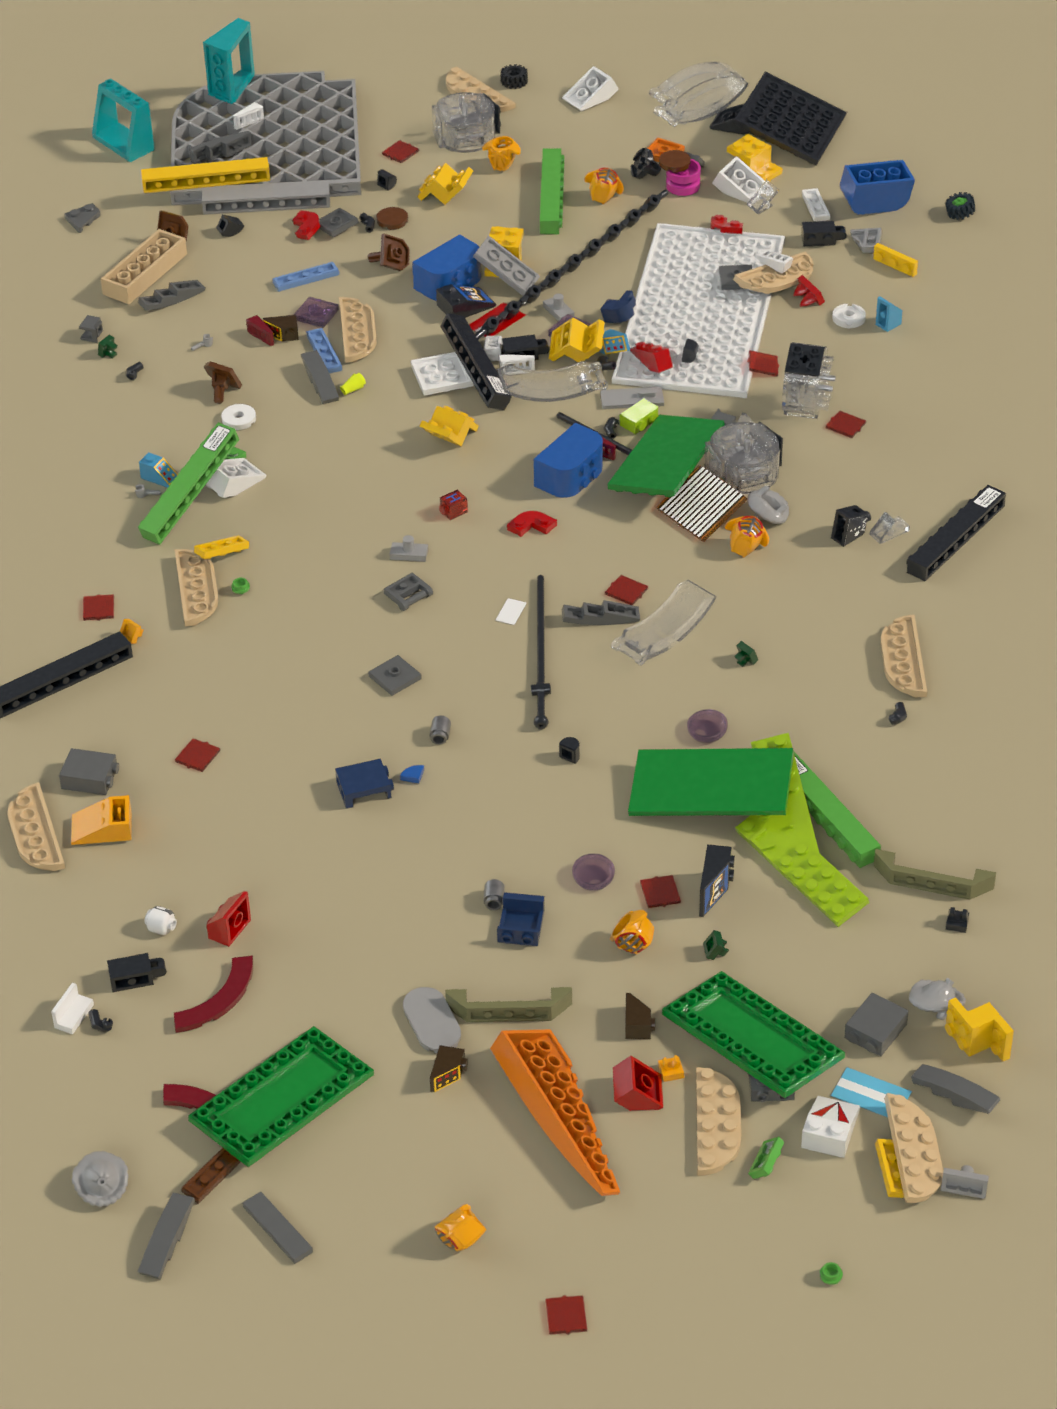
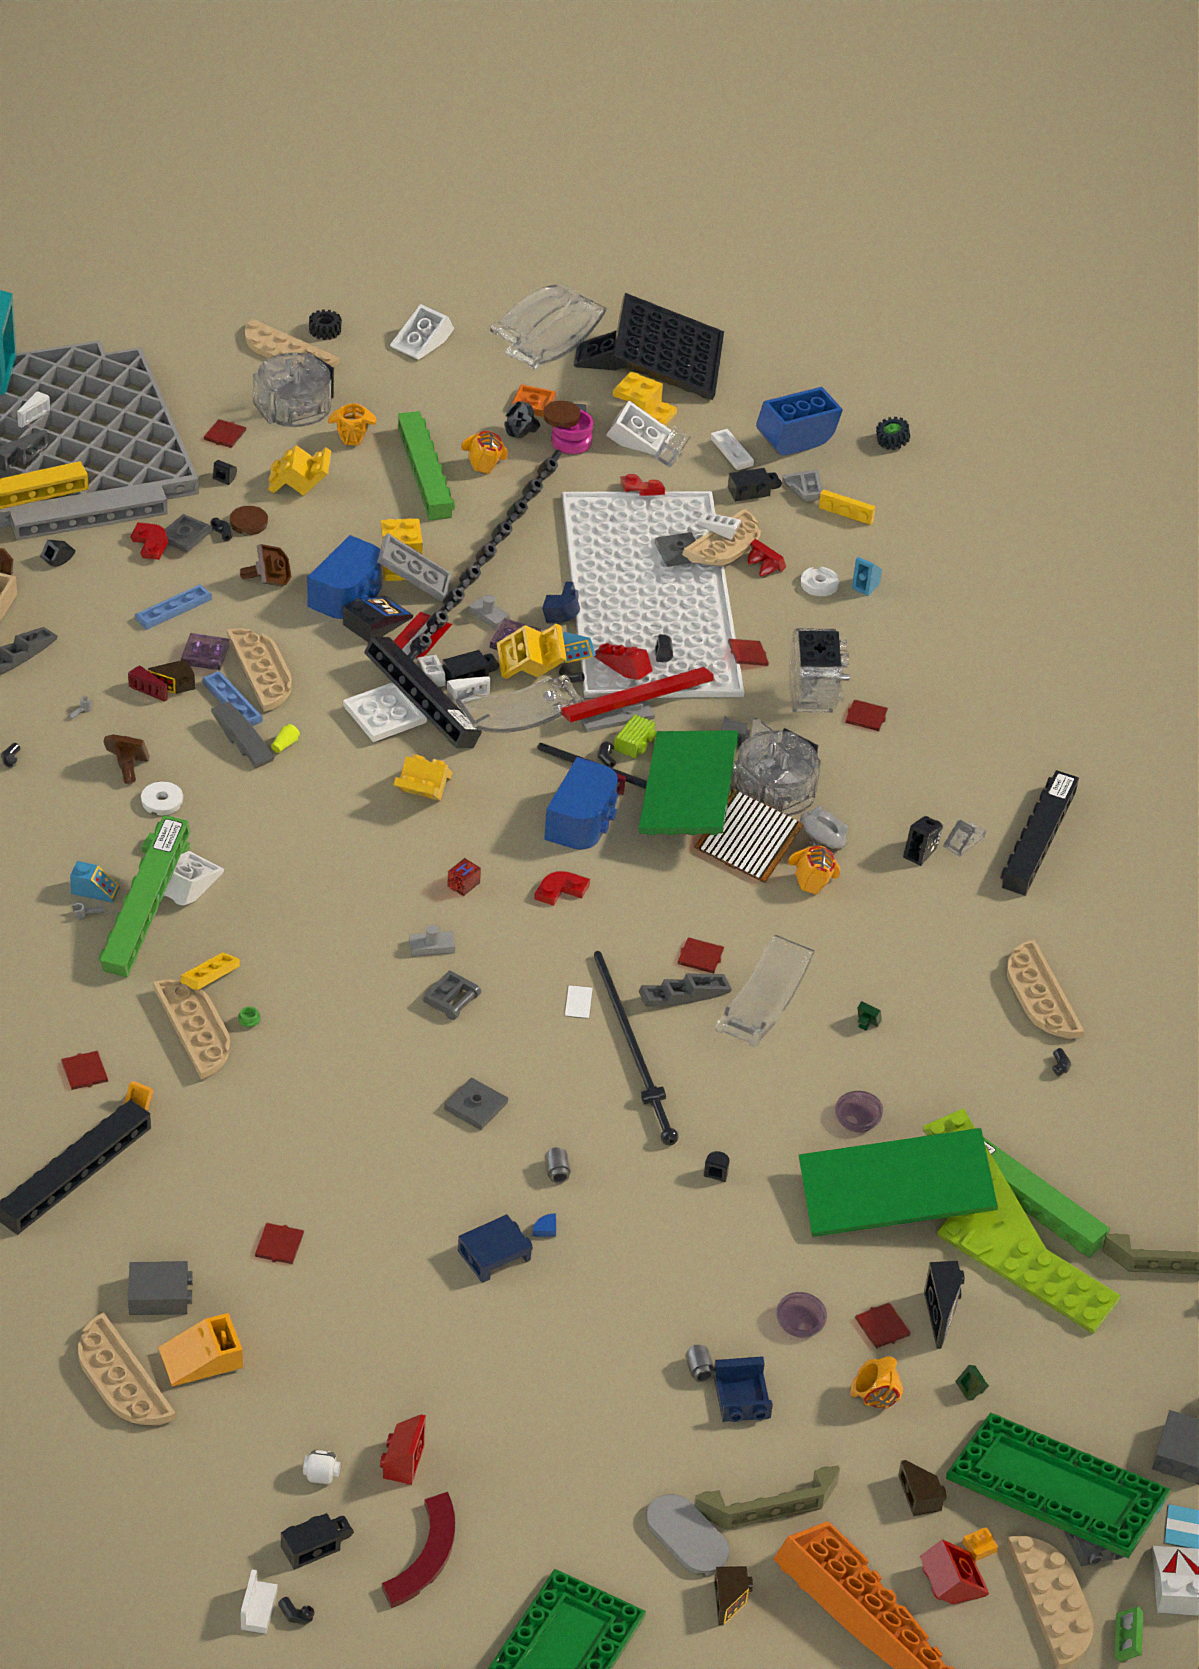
camera: 20 degrees left, 0 degrees up
(653, 384) = (637, 694): none -> red tile

